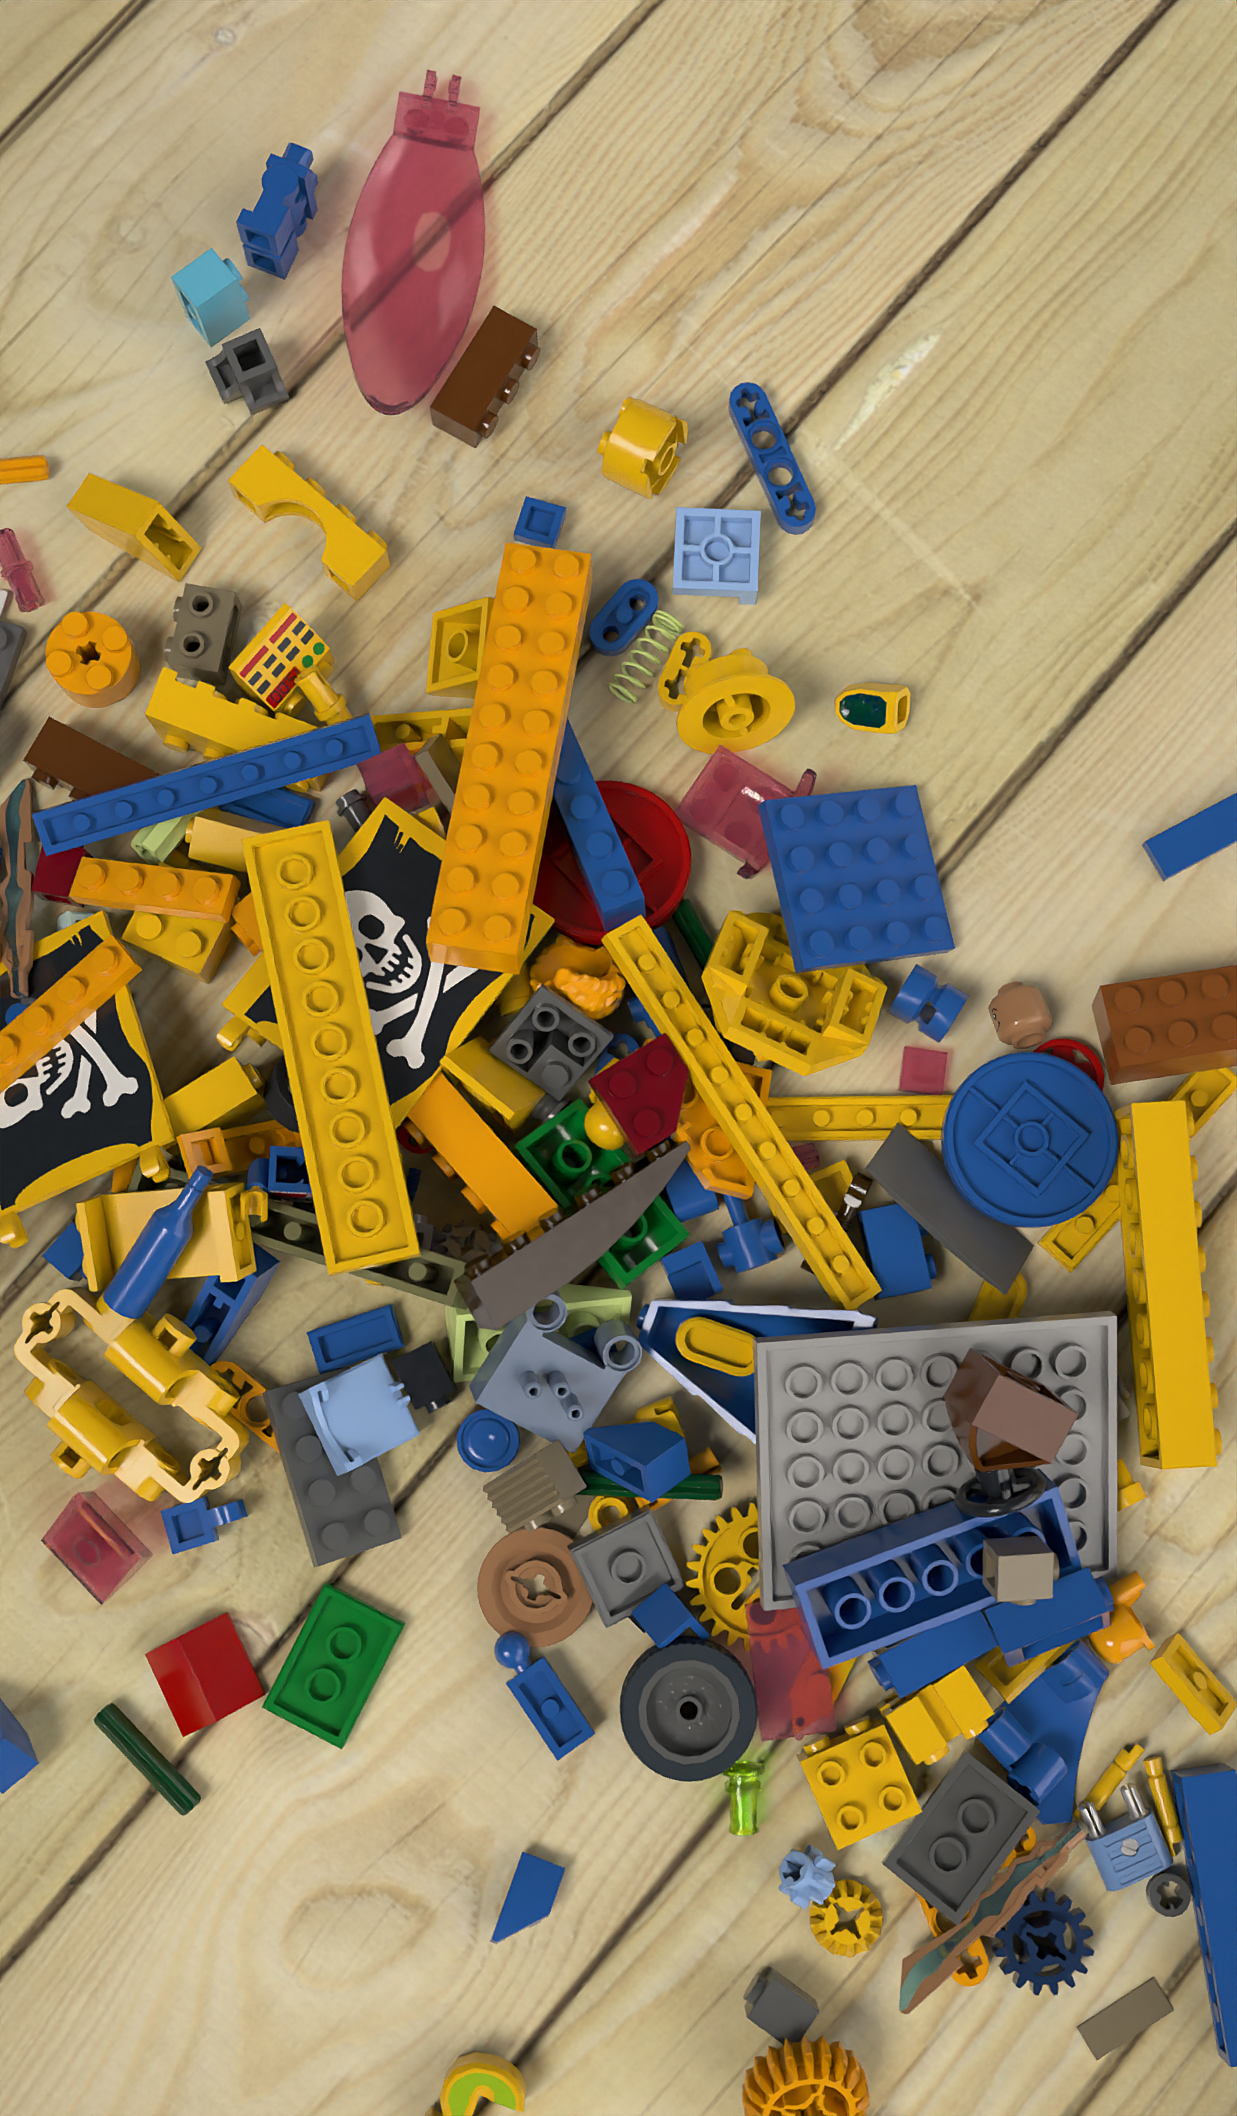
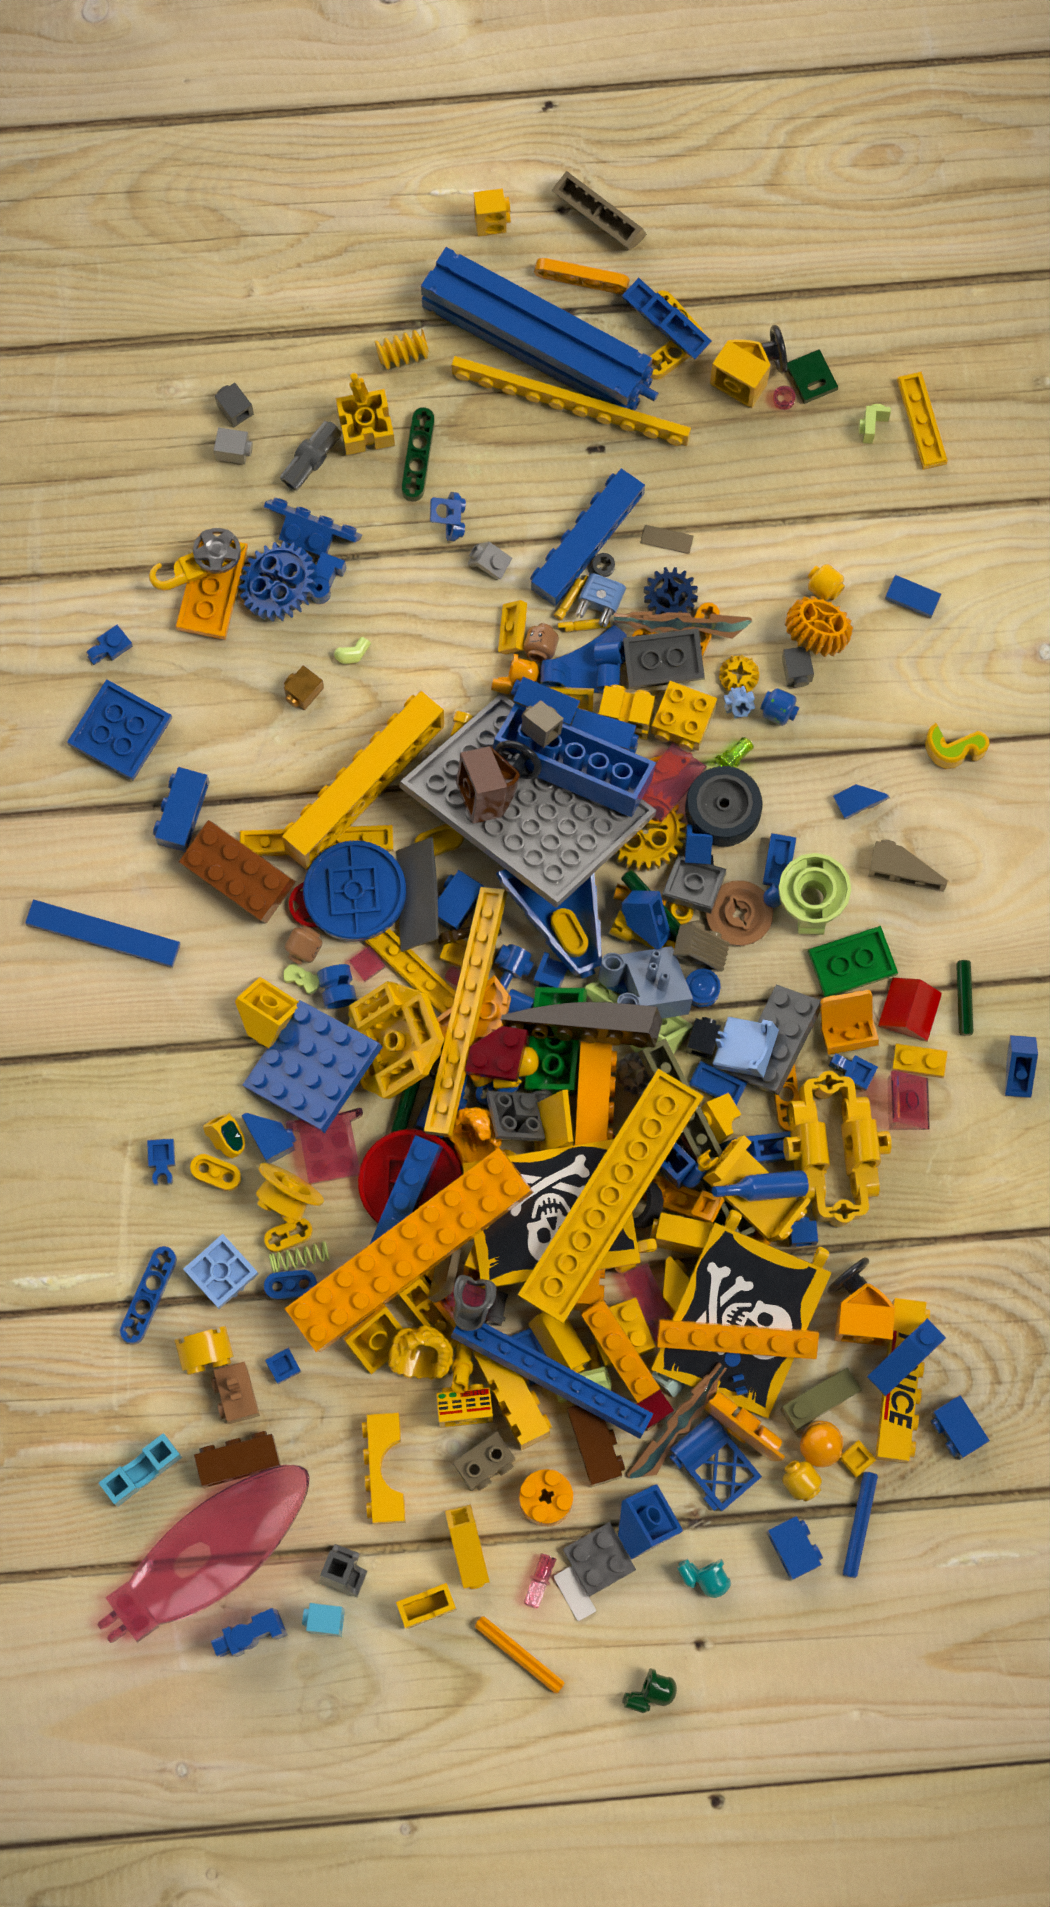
camera: 135 degrees left, 5 degrees down
(115, 418) = (426, 1606): none -> yellow brick
(131, 1617) = (919, 1060): none -> yellow plate
(172, 1042) = (674, 1283): none -> yellow slope
(184, 995) = (645, 1289): none -> clear pink hinge
(258, 1572) = (848, 1022): none -> light orange bracket
(309, 1292) = (720, 1115): none -> yellow brick
(363, 744) = (470, 1317): none -> dark grey piece
(390, 1858) = (899, 865): none -> dark tan slope
(396, 679) = (420, 1353): none -> yellow hair
(436, 1735) = (820, 873): none -> yellowish green piece
(559, 444) = (235, 1393): none -> medium nougat brick
(580, 263) = (138, 1473): none -> medium azure arch
(749, 1923) = (779, 706): none -> blue head
(825, 751) = (270, 1137): none -> blue slope
(838, 658) = (216, 1172): none -> yellow plate
(920, 616) = (161, 1156): none -> blue plate
(982, 893) = (265, 1011): none -> yellow slope
(982, 977) = (302, 978): none -> yellowish green piece
(1136, 1698) = (540, 642): none -> medium nougat head

